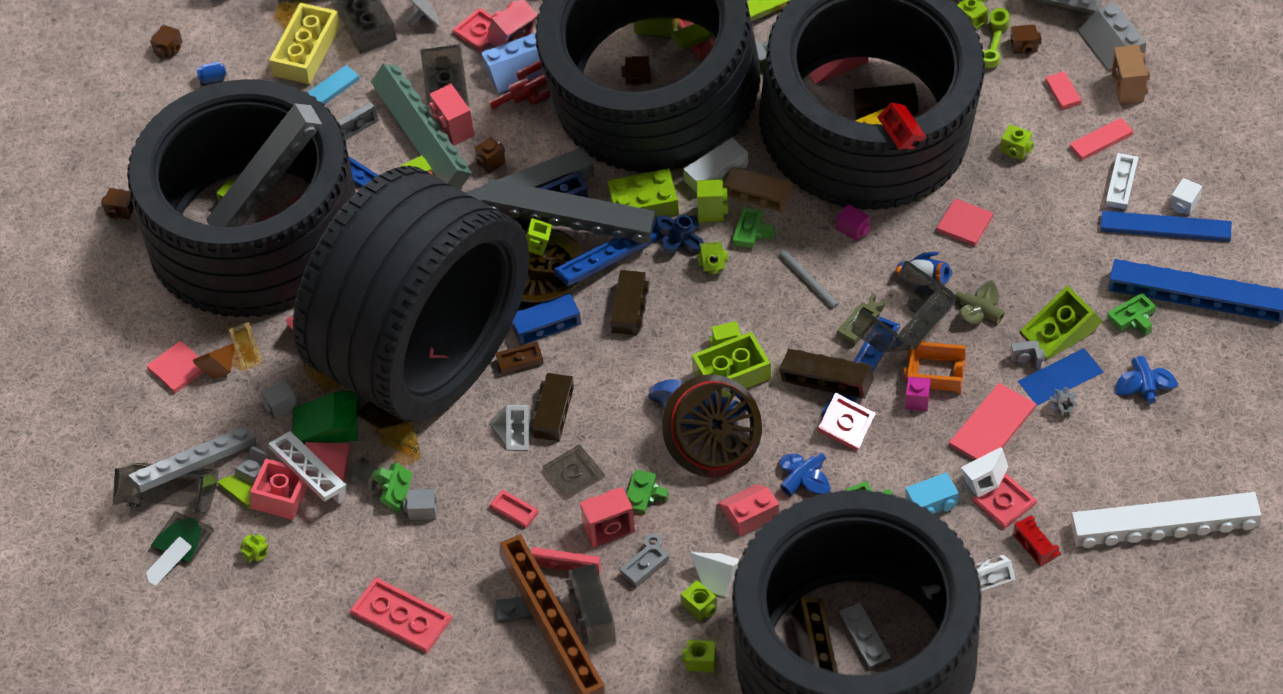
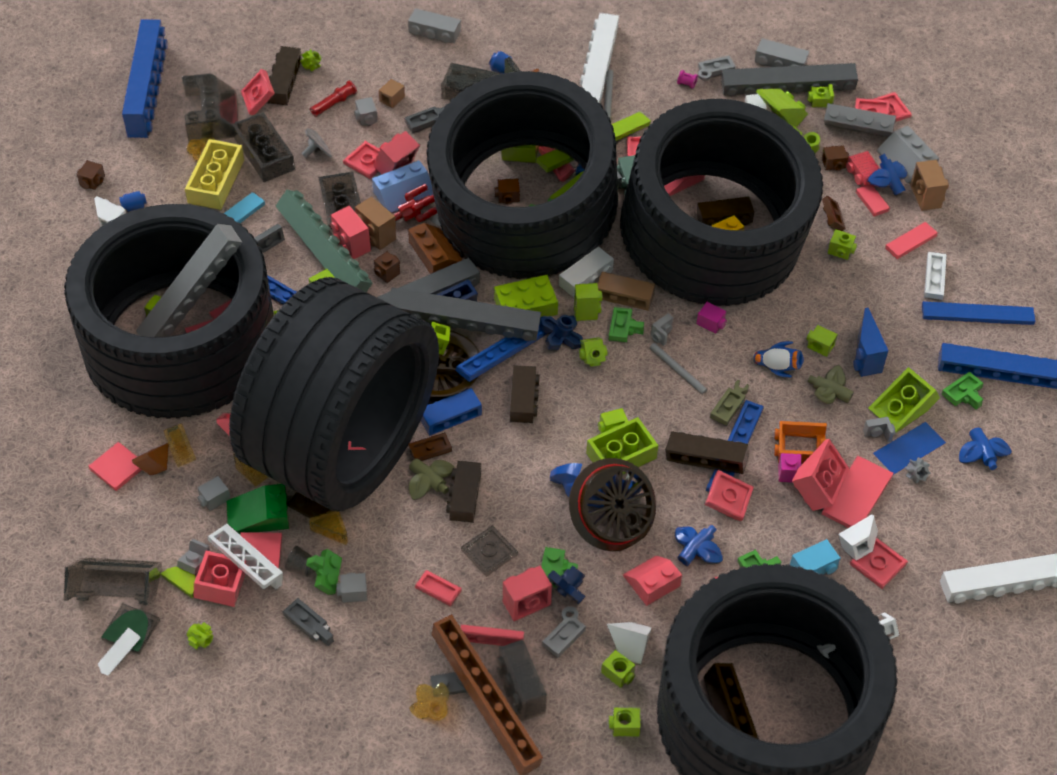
camera: 10 degrees left, 0 degrees up
(117, 203) = (54, 318): reddish brown brick -> none
(182, 83) = (107, 211): none -> white slope
(192, 459) = (135, 554): light grey plate -> none
(371, 538) = (308, 621): none -> dark grey hinge
(401, 615) = (342, 694): coral tile -> none
(483, 103) = (379, 221): none -> medium nougat brick
(491, 624) = (428, 699): none -> clear yellow plate
(513, 426) = (430, 511): white slope -> none
(515, 389) = (429, 477): none -> olive plant
(544, 133) = (432, 247): none -> dark orange slope
(652, 508) = (568, 583): none -> dark blue plant
(794, 233) = (661, 329): none -> light grey bracket
(864, 636) = (772, 695): white plate -> none
(901, 126) = (760, 231): red hinge -> none
(928, 301) = (786, 383): clear smoke windscreen -> none
(951, 403) = (821, 476): none -> coral slope
(964, 222) = (806, 313): coral tile -> none
(976, 252) = (821, 340): none -> lime brick
(1013, 105) = (833, 213): none -> reddish brown plate
(1028, 262) = (871, 348): none -> blue slope
(1035, 541) = (912, 600): red hinge -> none
(1058, 54) = (861, 167): none -> coral brick
(1085, 61) = (889, 175): none -> blue plant
(1186, 197) = (992, 287): white brick -> none

